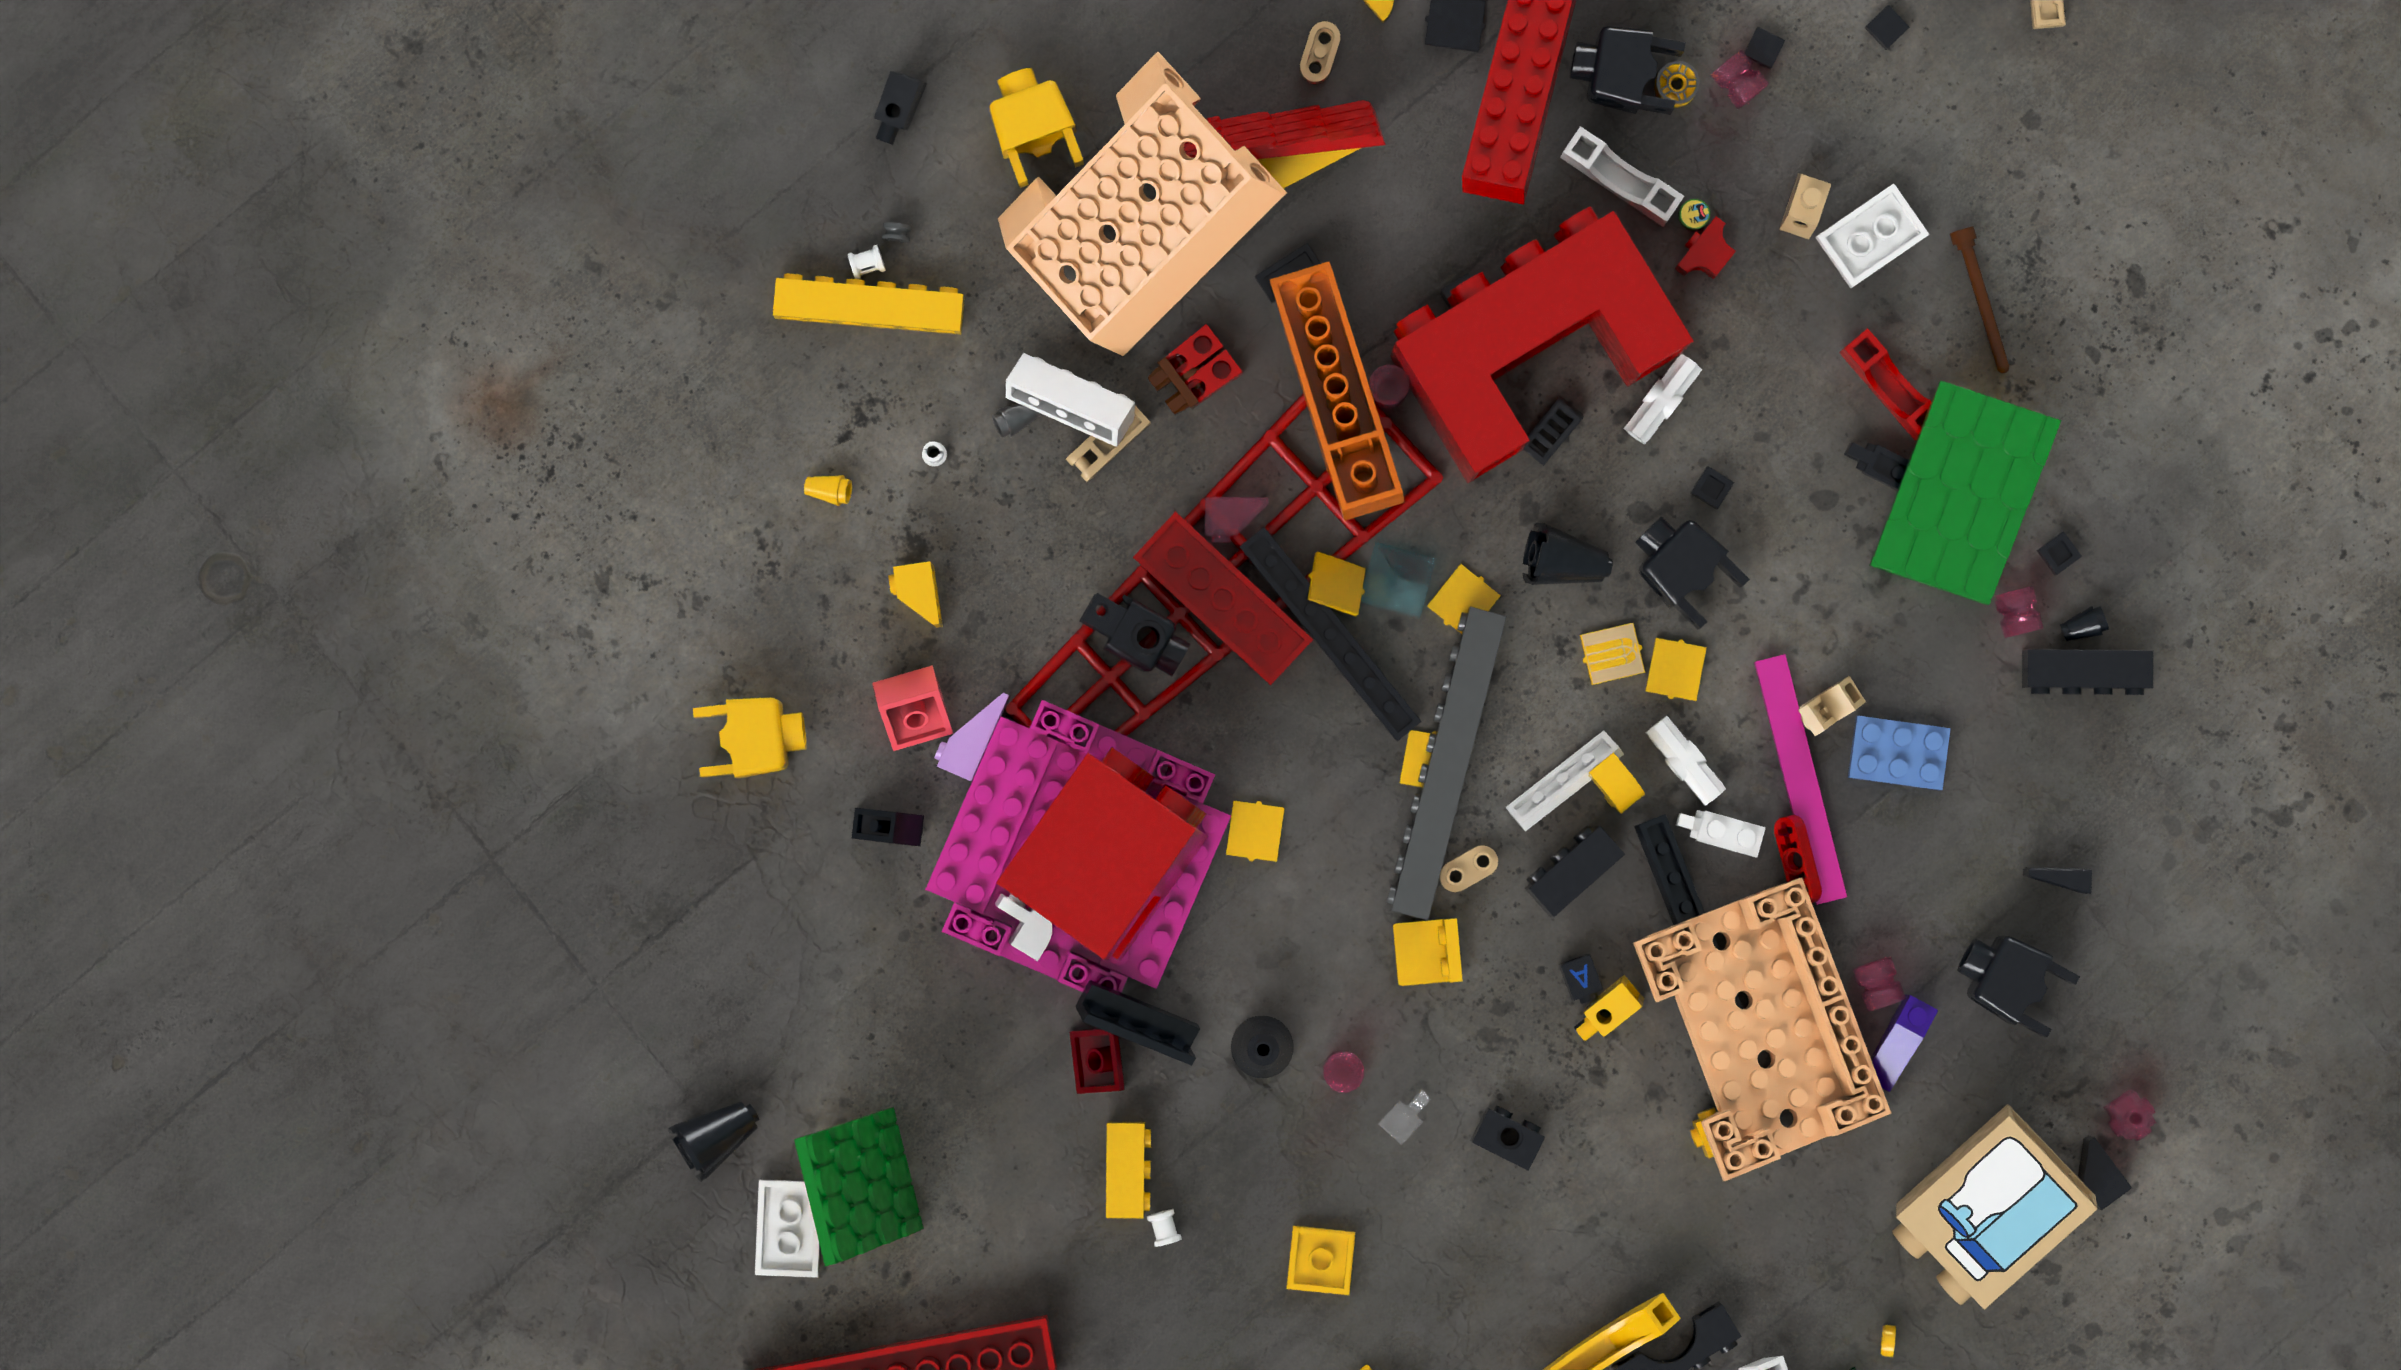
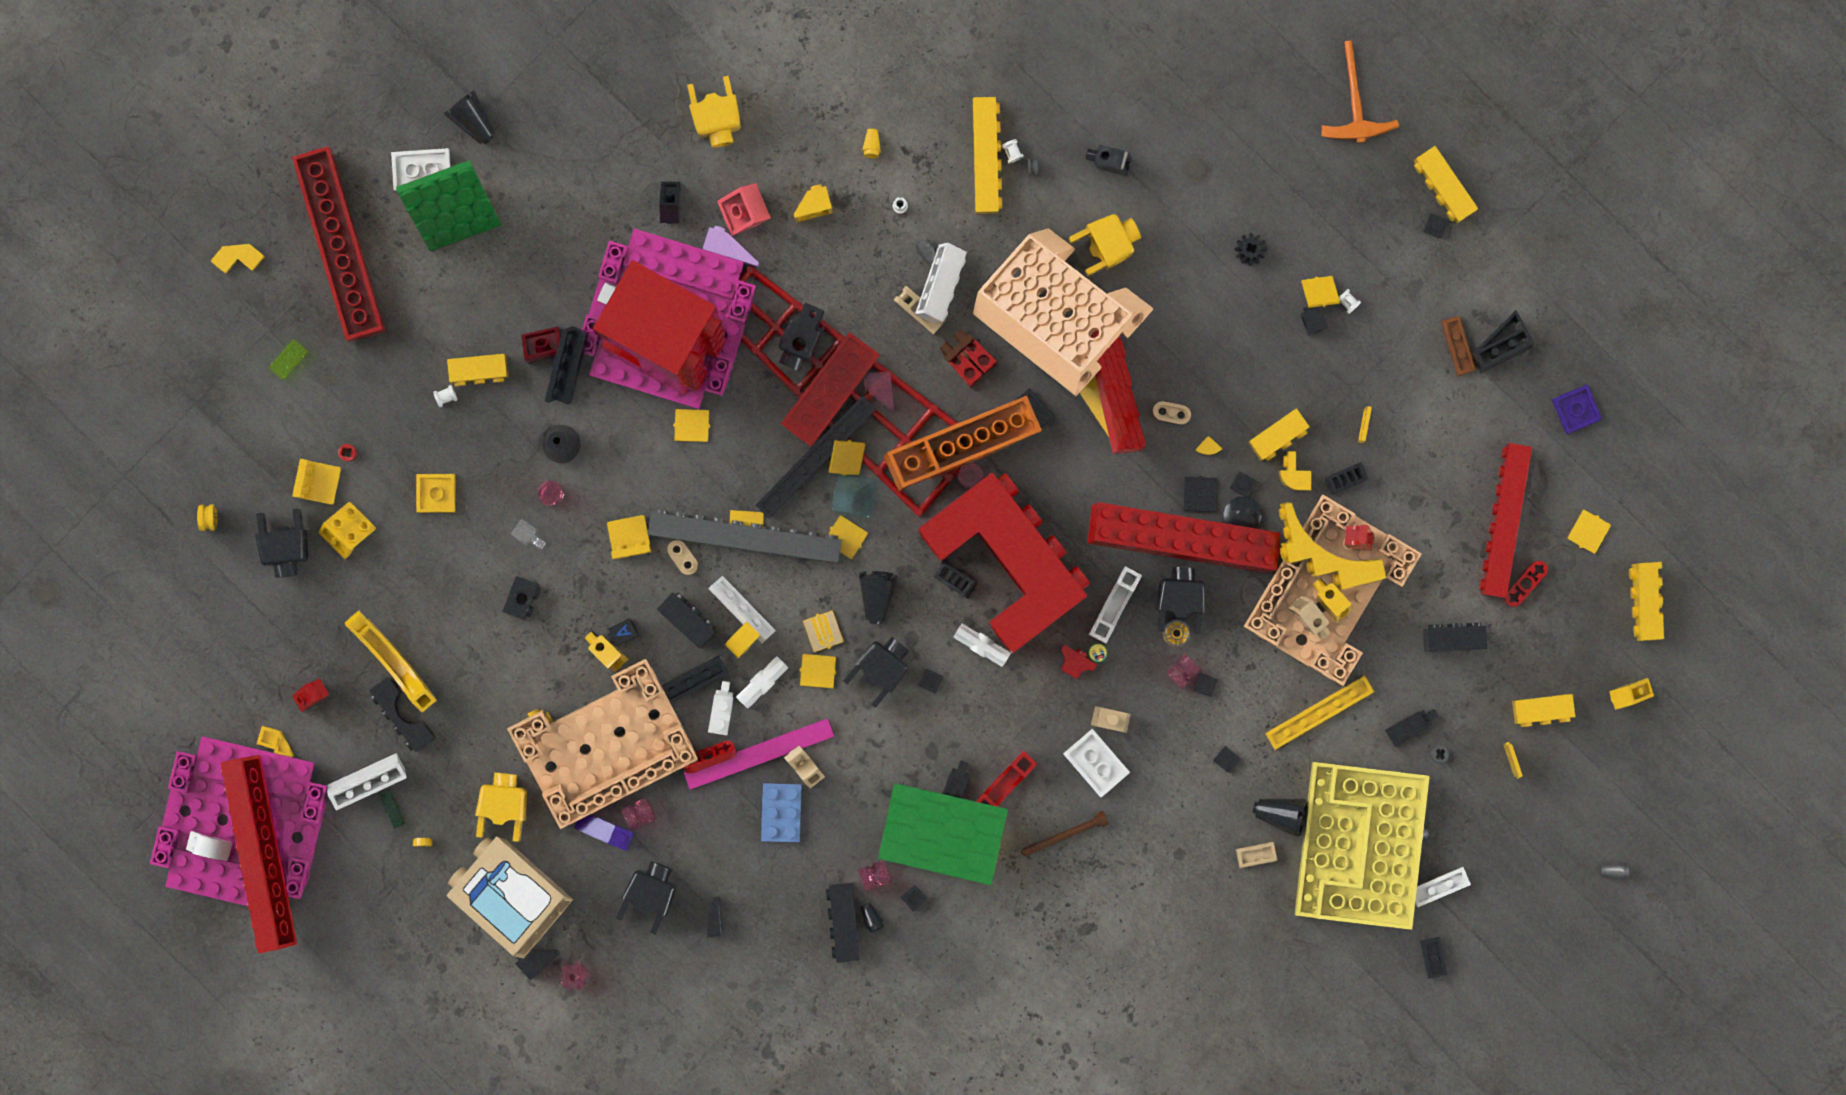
camera: 85 degrees right, 0 degrees up
(1840, 1203) = (502, 803): none -> yellow piece

